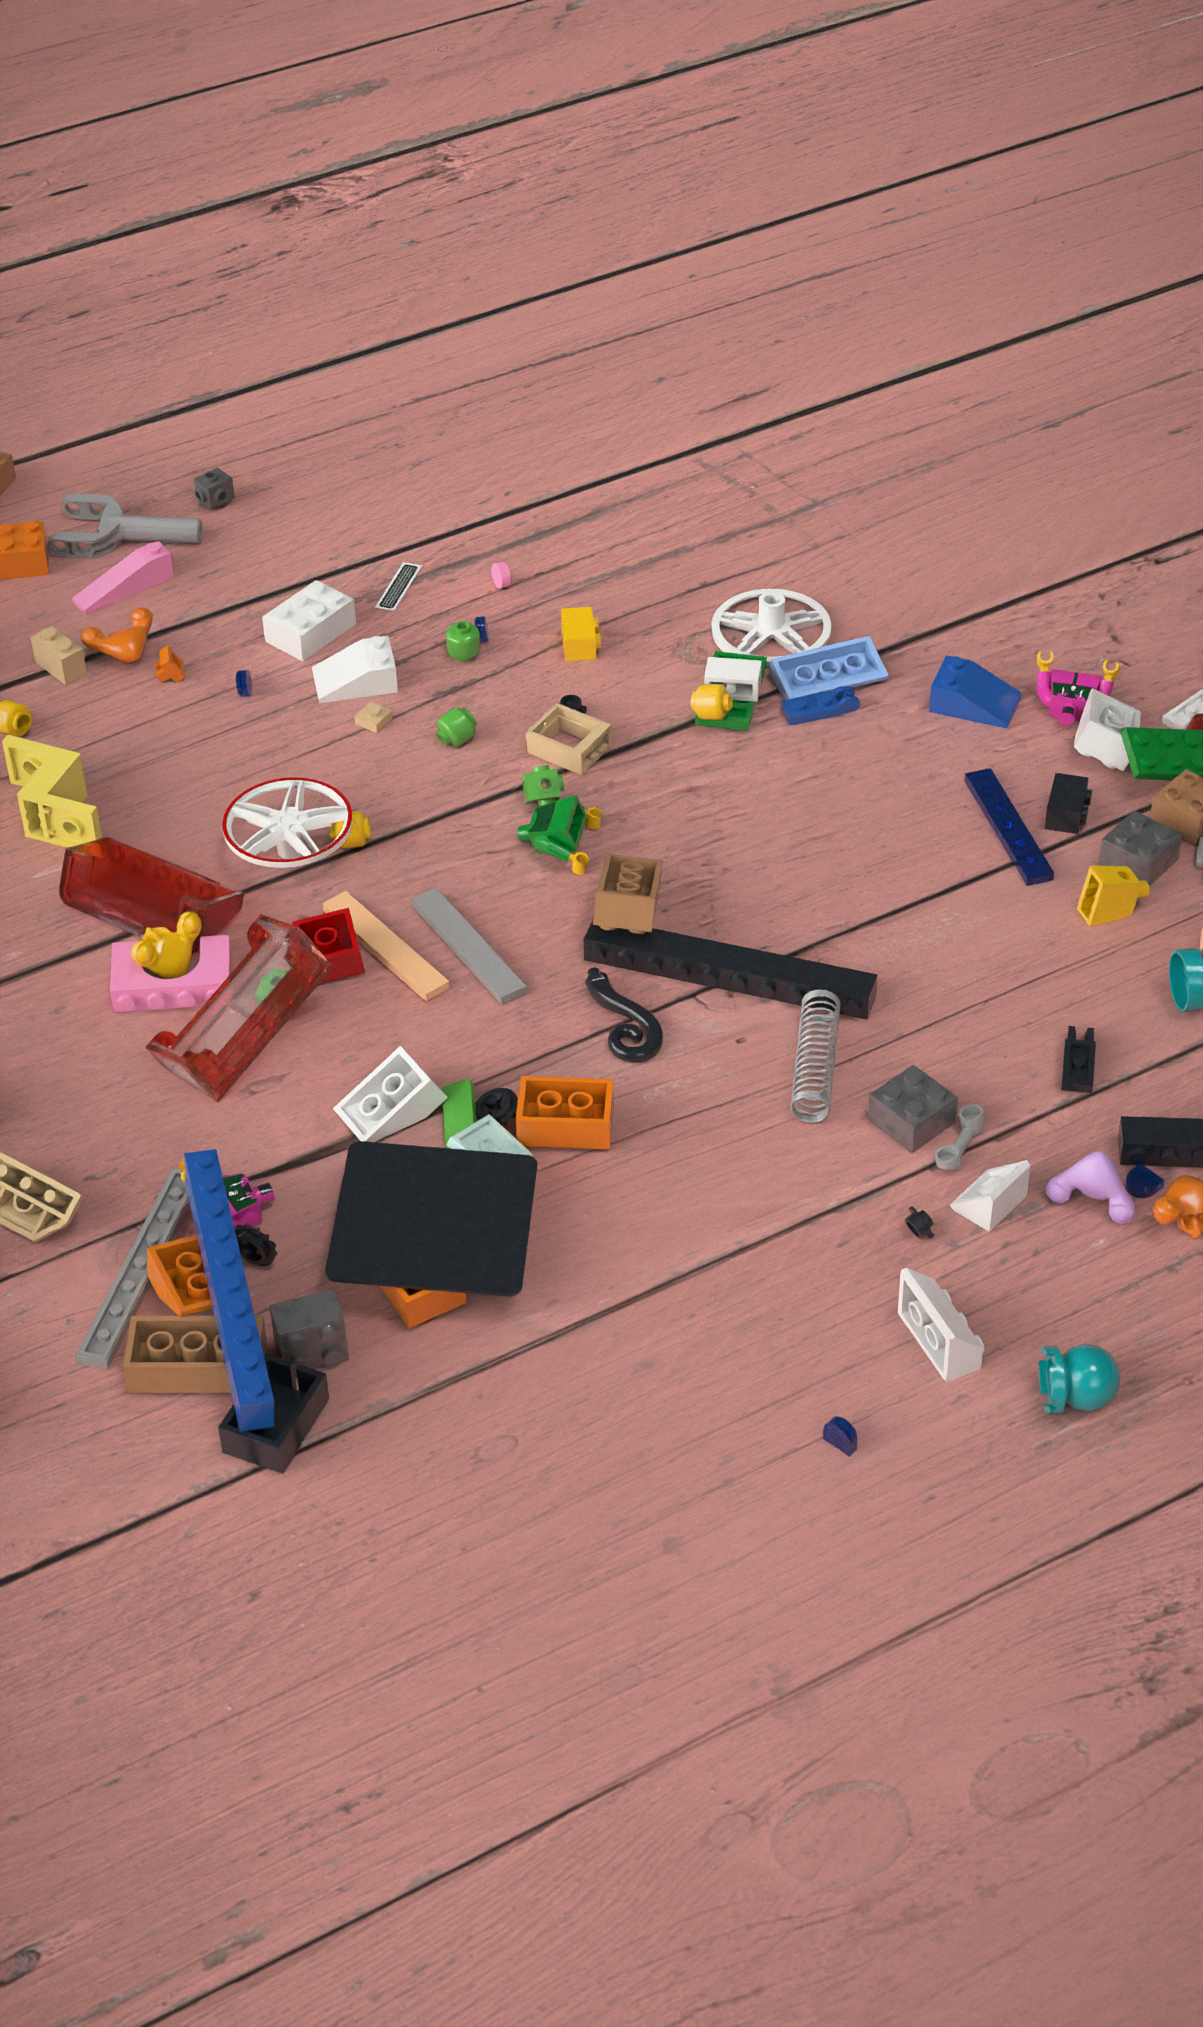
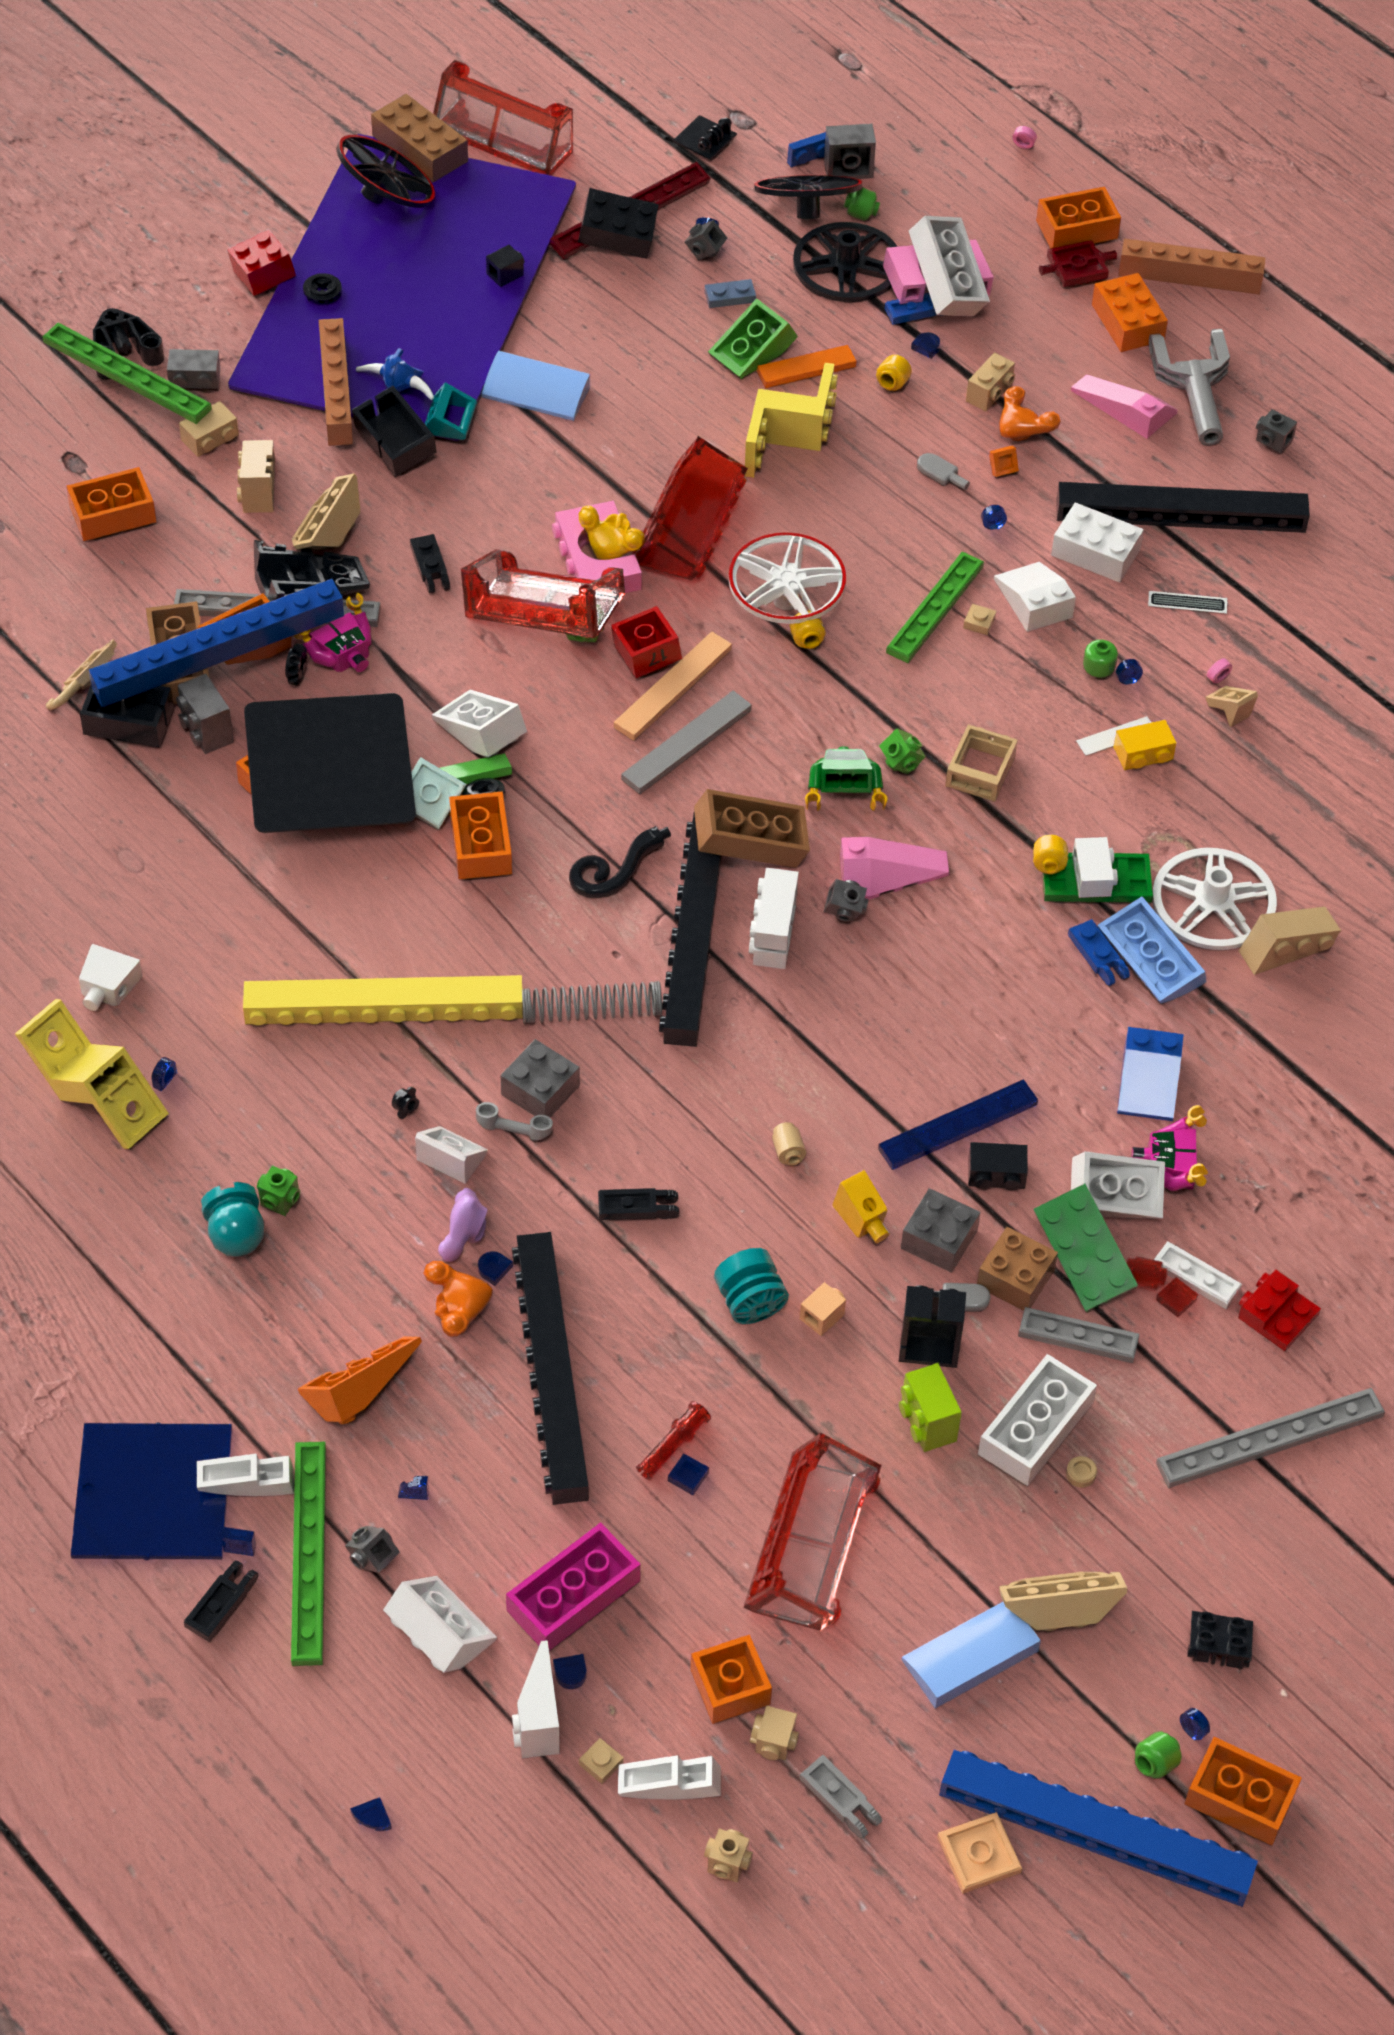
camera: 75 degrees right, 10 degrees up
(112, 1226) = (288, 571): none -> black wedge
(127, 1119) = (429, 561): none -> black hinge
(159, 713) = (940, 470): none -> light grey piece
(188, 1459) = (81, 677): none -> tan plate
(282, 563) = (1189, 506): none -> black brick
(345, 745) = (934, 607): none -> bright green tile
(456, 727) = (974, 677): bright green head -> none
(548, 565) = (1234, 701): none -> tan slope
(552, 656) = (1106, 738): none -> white sticker
(573, 702) = (1035, 759): black plate -> none
(682, 828) = (889, 864): none -> bright pink wedge
(686, 1476) = (107, 977): none -> white torso
(725, 851) = (846, 900): none -> flat silver brick
(742, 898) = (772, 919): none -> white piece
(774, 1231) = (382, 1000): none -> light yellow brick
(840, 585) = (1288, 937): none -> tan wedge
(849, 1487) = (92, 1074): none -> light yellow bracket
(938, 1326) = (283, 1120): white slope -> none
(1020, 938) = (788, 1144): none -> tan brick
(1026, 1340) = (278, 1190): none -> bright green brick

